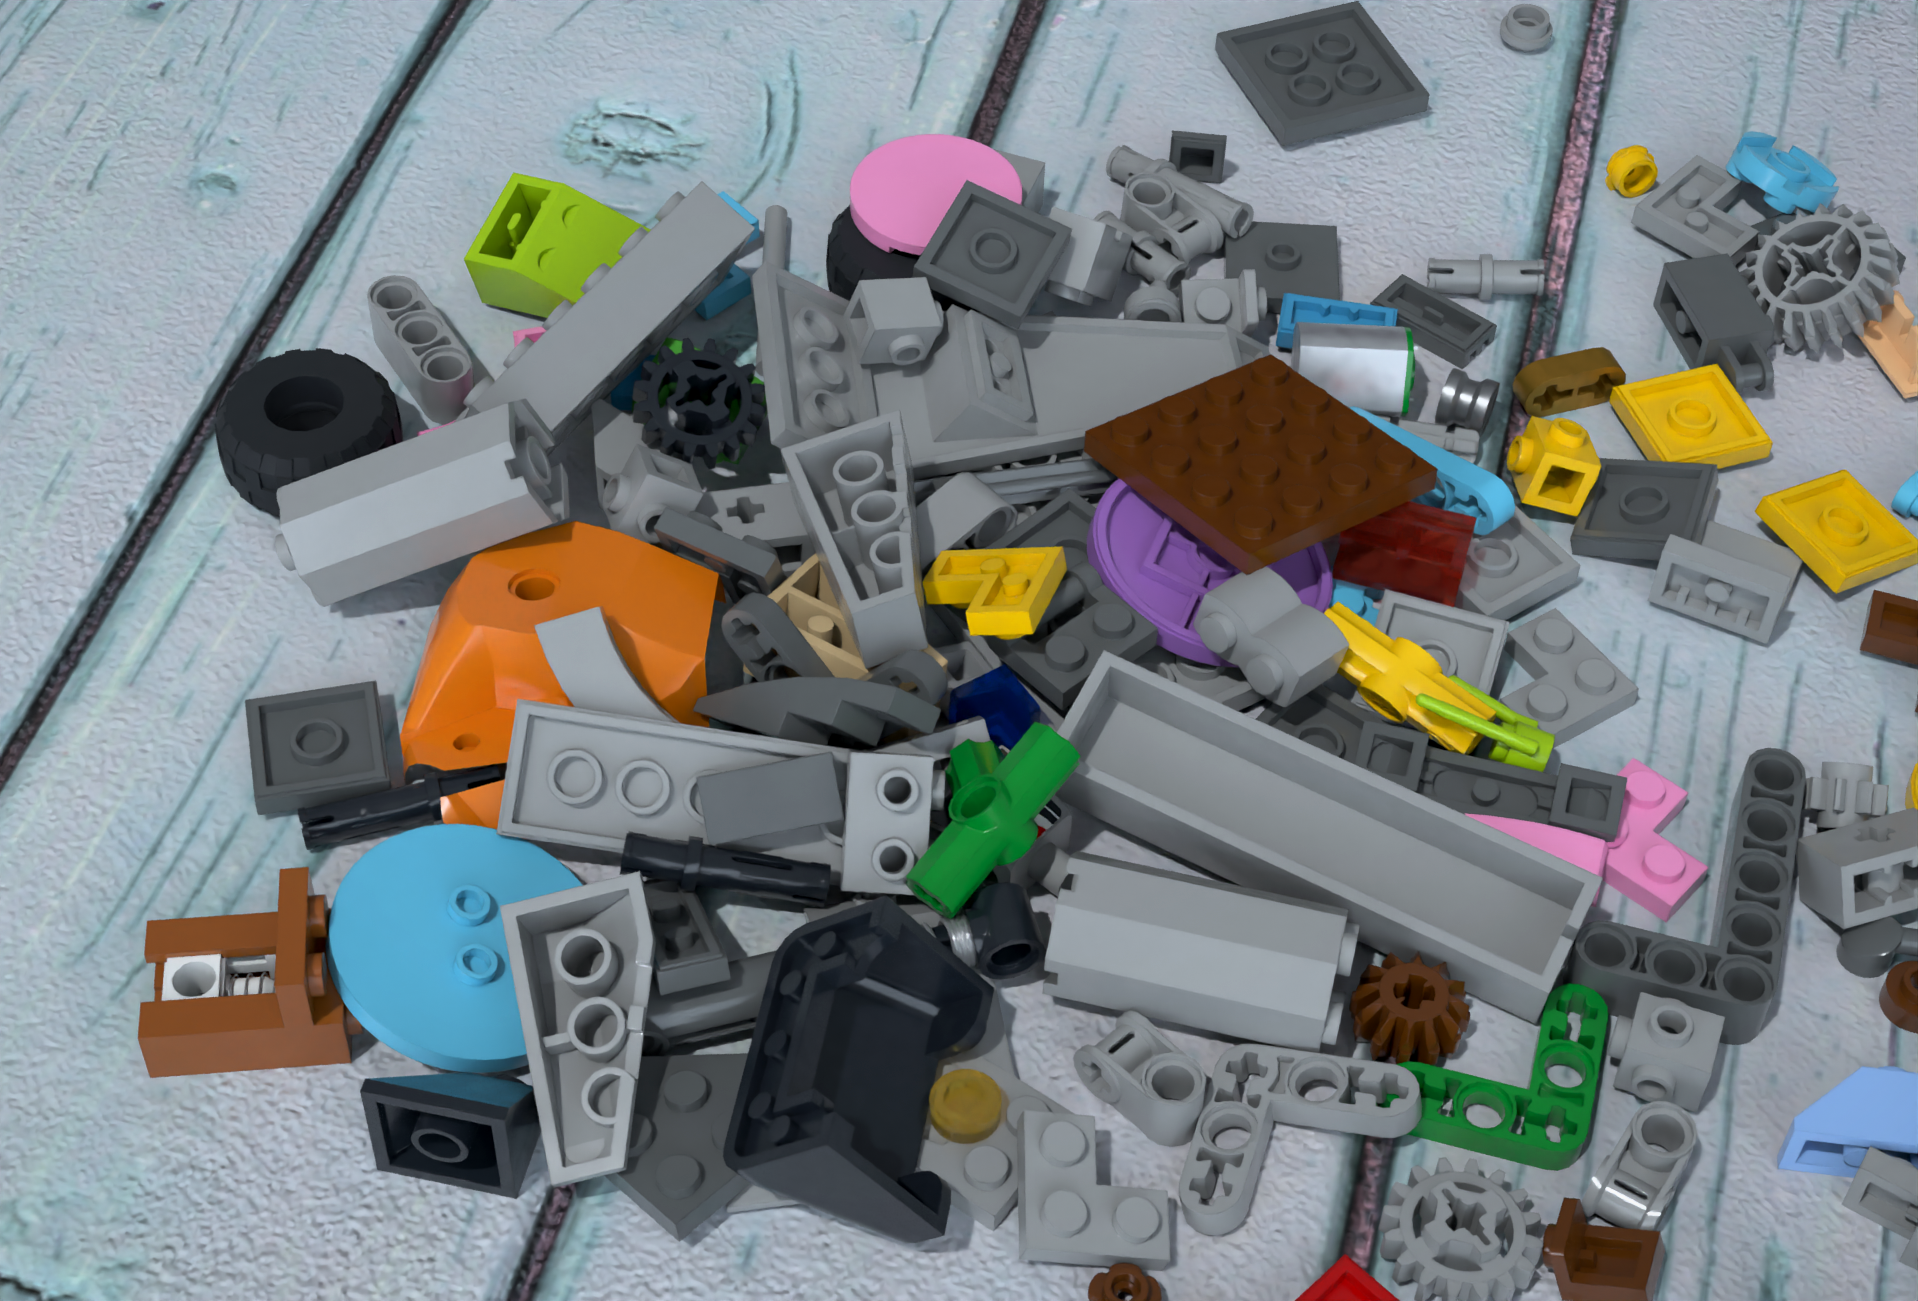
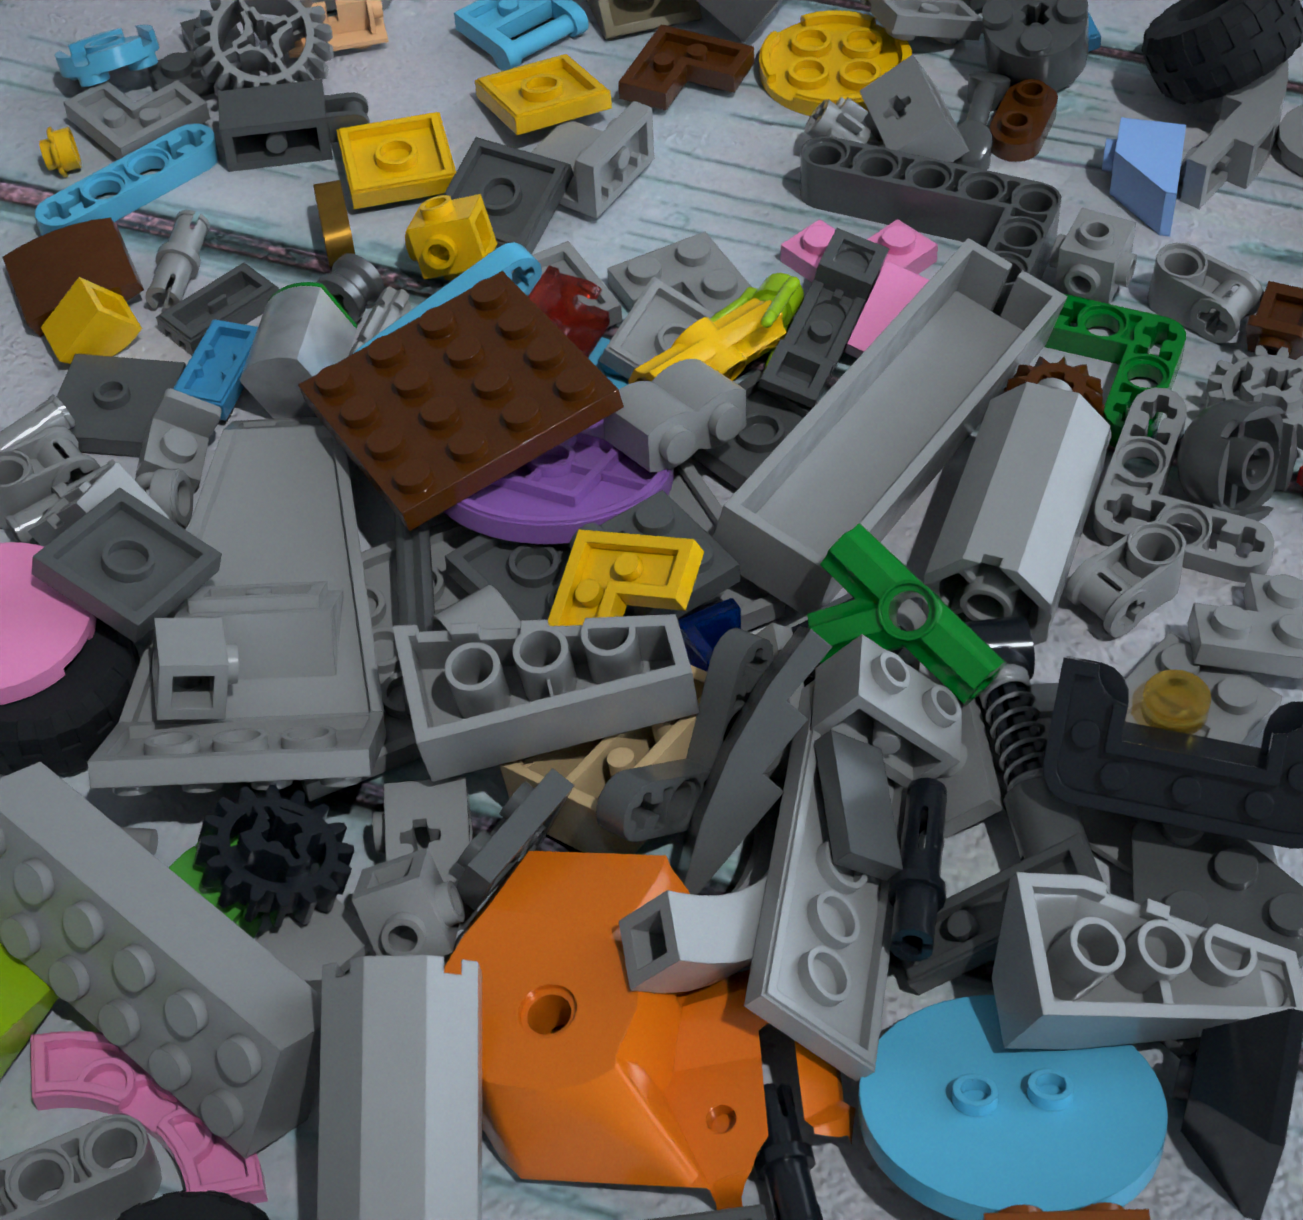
camera: 80 degrees left, 0 degrees up
(1330, 1177) = (1237, 457): none -> dark grey cylinder
(1378, 230) = (90, 323): none -> yellow brick
(1450, 207) = (52, 263): none -> reddish brown slope
(1545, 197) = (178, 155): none -> medium azure beam

